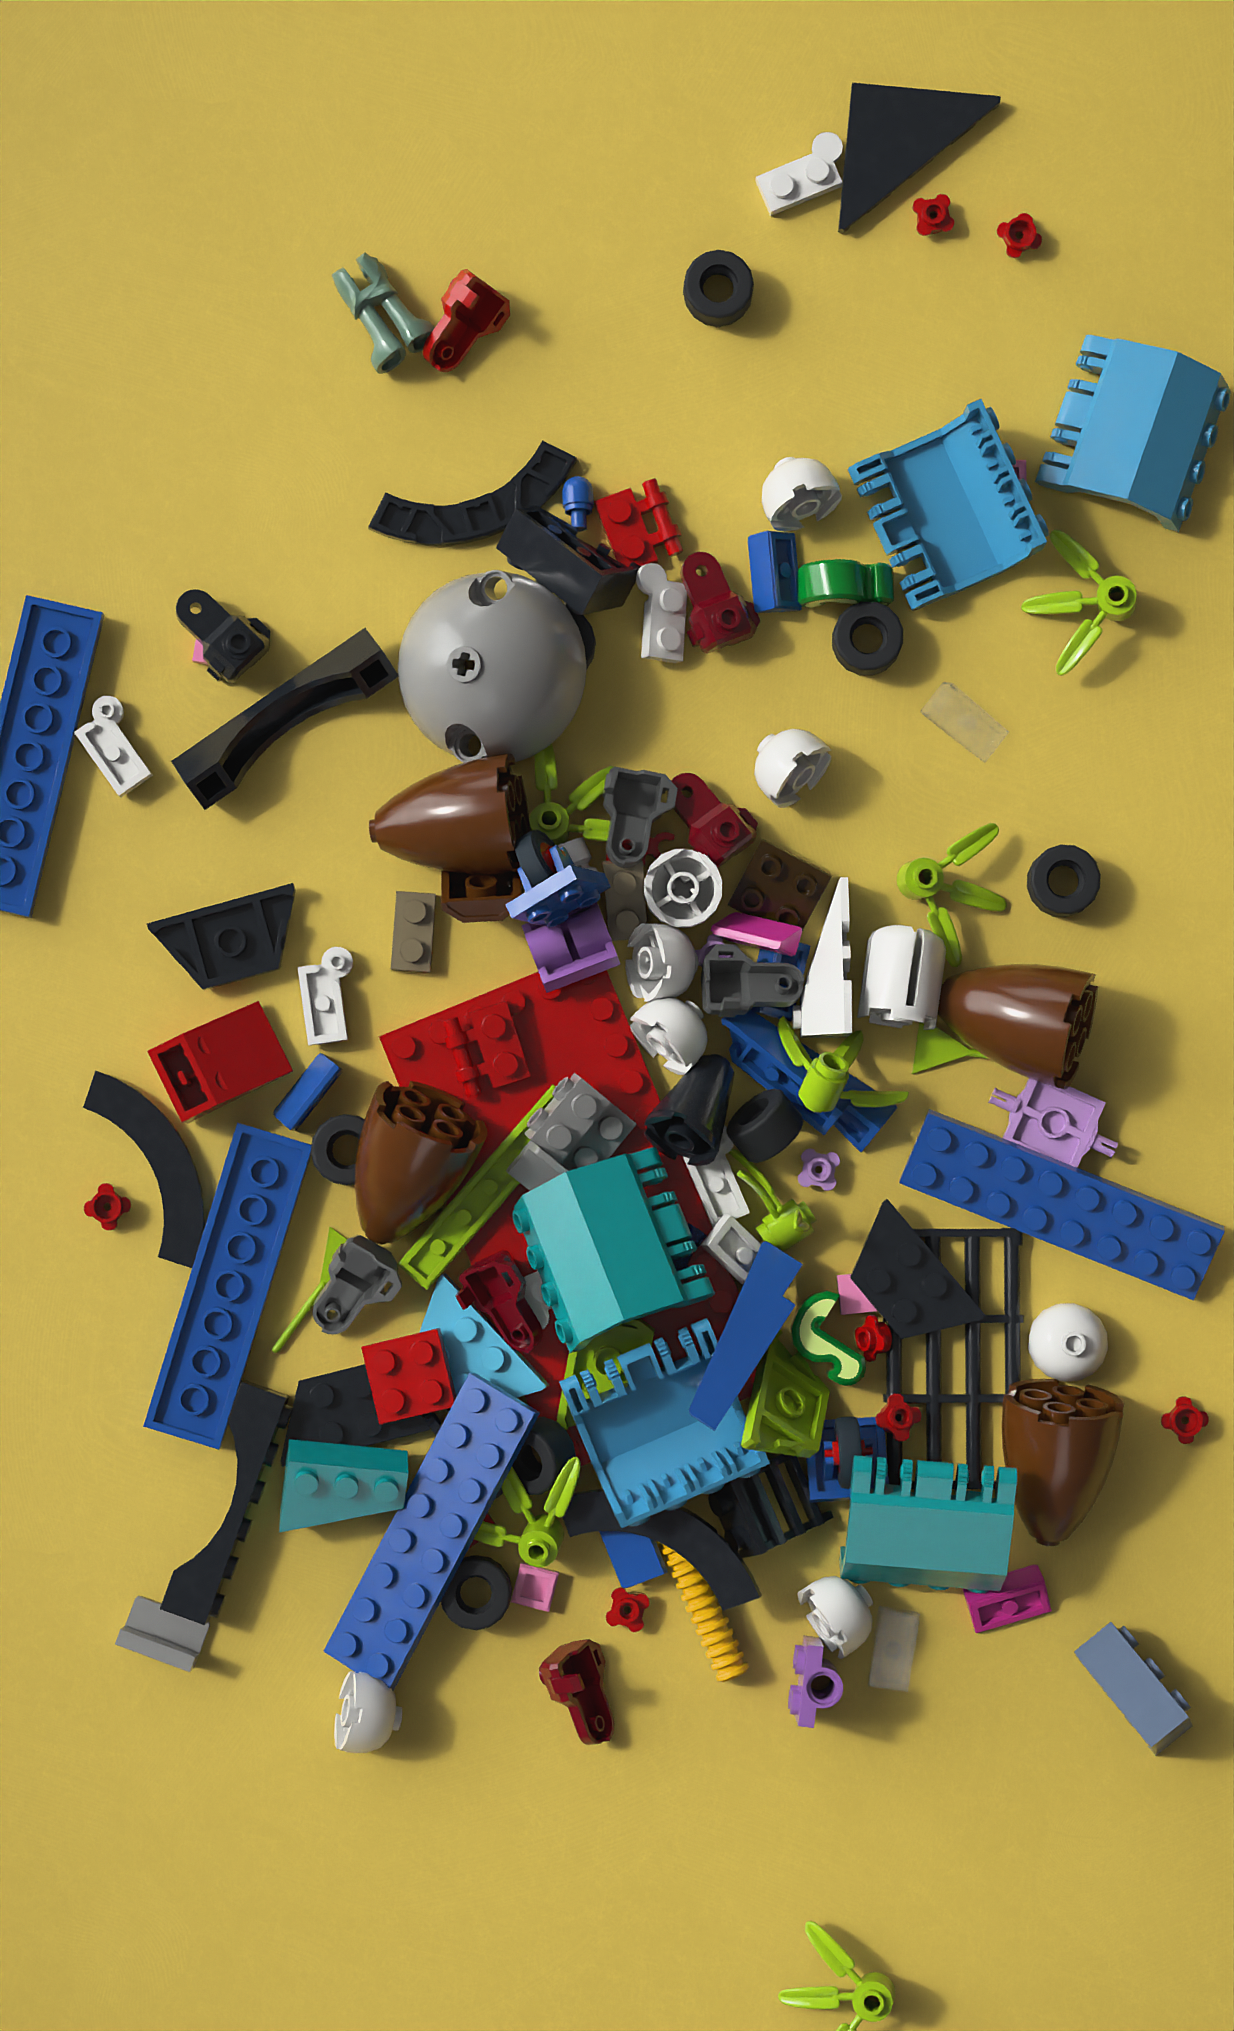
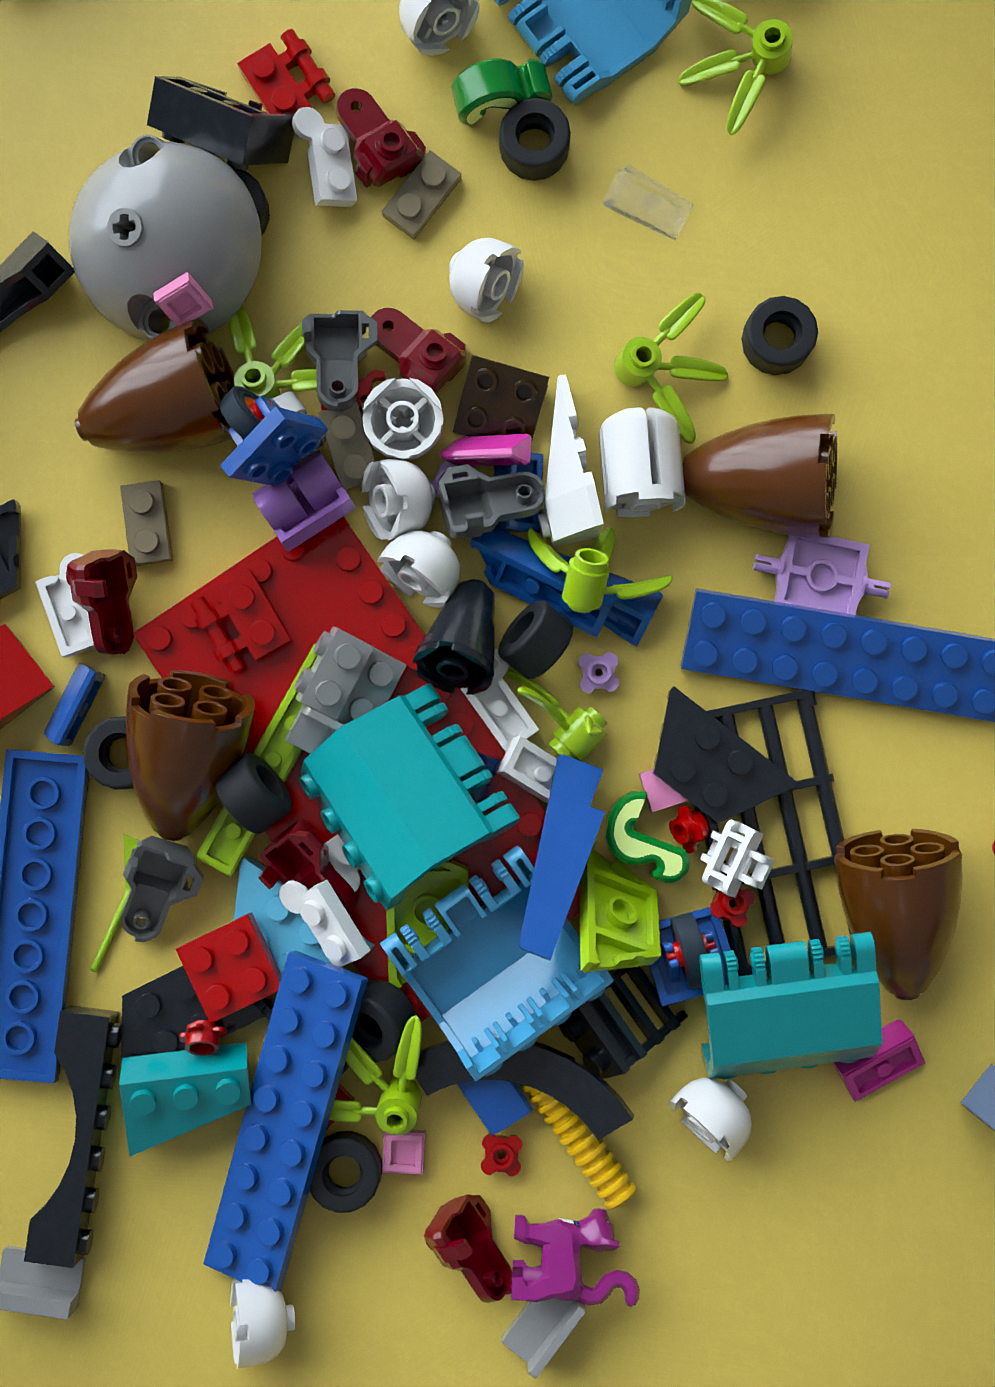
camera: 15 degrees left, 0 degrees up
(361, 988) = (102, 586): none -> dark red piece
(370, 1436) = (202, 1037): none -> red plate
(469, 1216) = (253, 793): none -> black tyre
(478, 895) = (195, 470): reddish brown slope -> none
(479, 516) = (124, 105): black tile -> none
(501, 738) = (183, 300): none -> bright pink tile
(511, 1350) = (326, 919): none -> white hinge
(578, 501) = (221, 66): blue cylinder -> none
(634, 1775) = (541, 1331): none -> light grey panel
(662, 1722) = (560, 1265): none -> magenta animal
(746, 667) = (421, 195): none -> dark tan plate
(774, 571) = (428, 95): blue slope -> none
(810, 1664) = (701, 1208): medium lavender plate -> none
(893, 1648) = (776, 1134): clear slope -> none
(916, 1377) = (742, 859): none -> white piece
(937, 1048) = (689, 528): lime piece -> none
(1067, 1342) = (883, 791): white cylinder -> none

